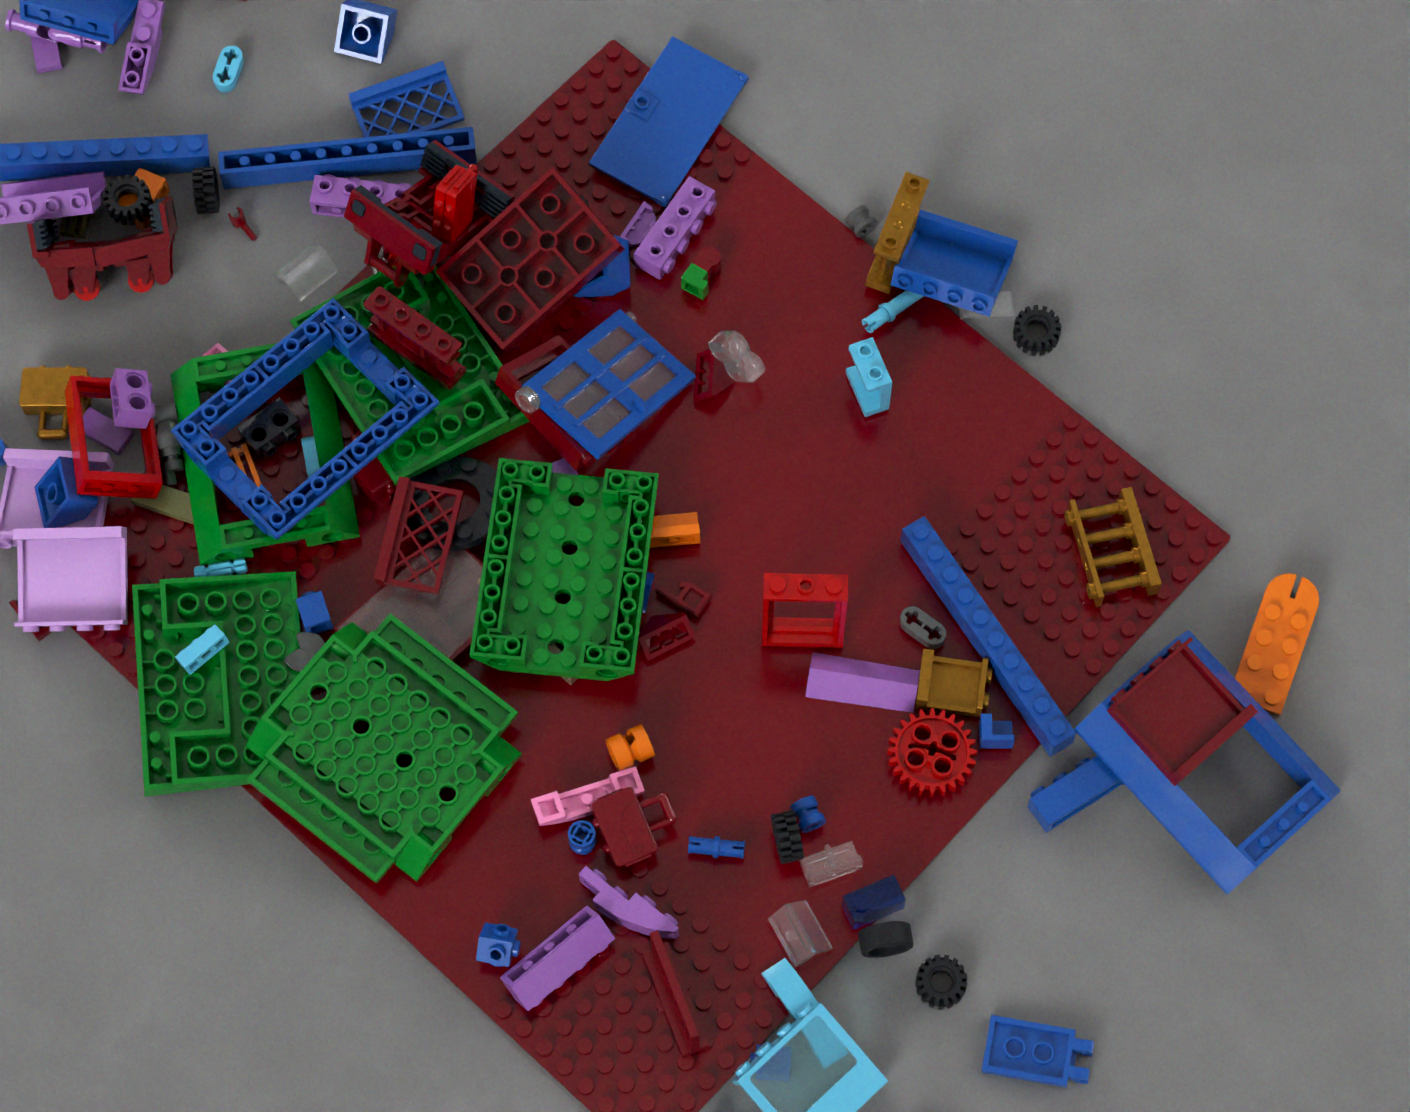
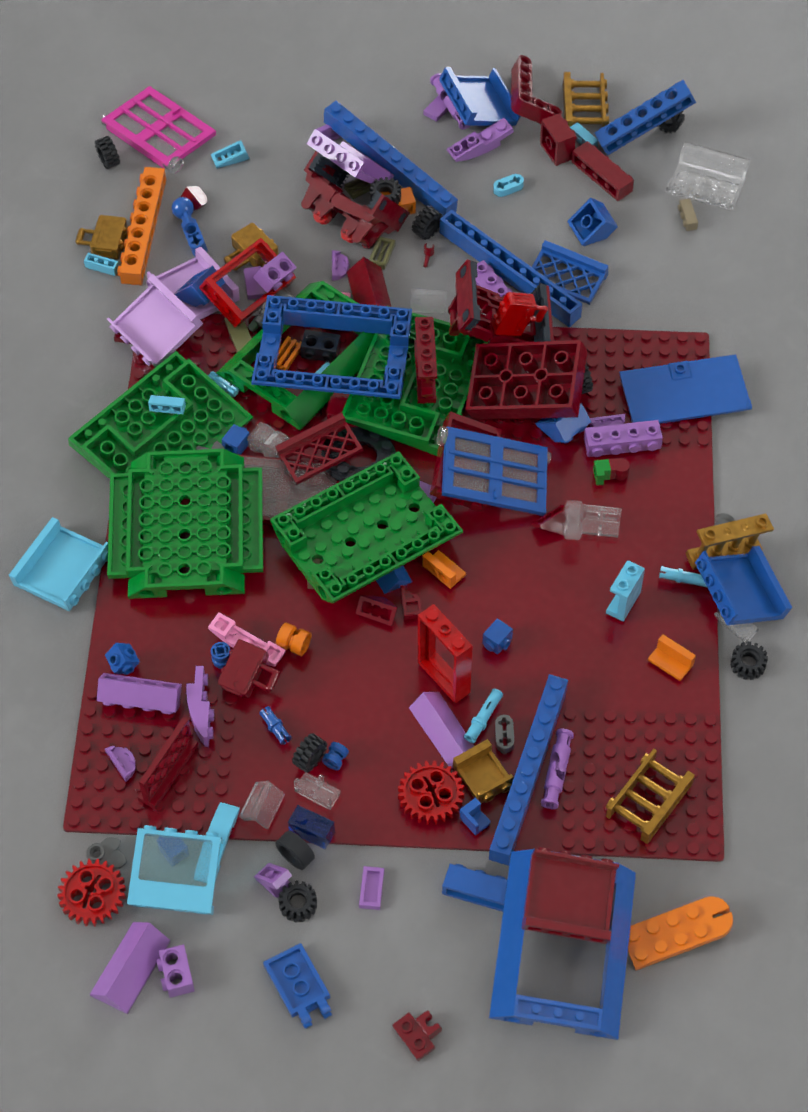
camera: 50 degrees right, 10 degrees down
(167, 324) = (340, 265): none -> medium lavender tile
(203, 284) = (386, 241): none -> olive tile
(233, 319) = (368, 283): none -> dark red slope
(307, 923) = (59, 565): none -> medium azure panel
(347, 581) = (264, 439): none -> clear brick
(621, 1037) = (123, 761): none -> medium lavender tile
(759, 328) = (601, 520): none -> clear panel
(806, 543) = (497, 636): none -> blue brick
(889, 640) = (480, 721): none -> medium azure pin
(895, 985) = (273, 878): none -> medium lavender slope
(975, 398) = (672, 658): none -> orange panel
(984, 896) = (371, 888): none -> medium lavender tile
(1013, 615) = (557, 766): none -> medium lavender piece
(1183, 977) = (417, 1033): none -> dark red plate

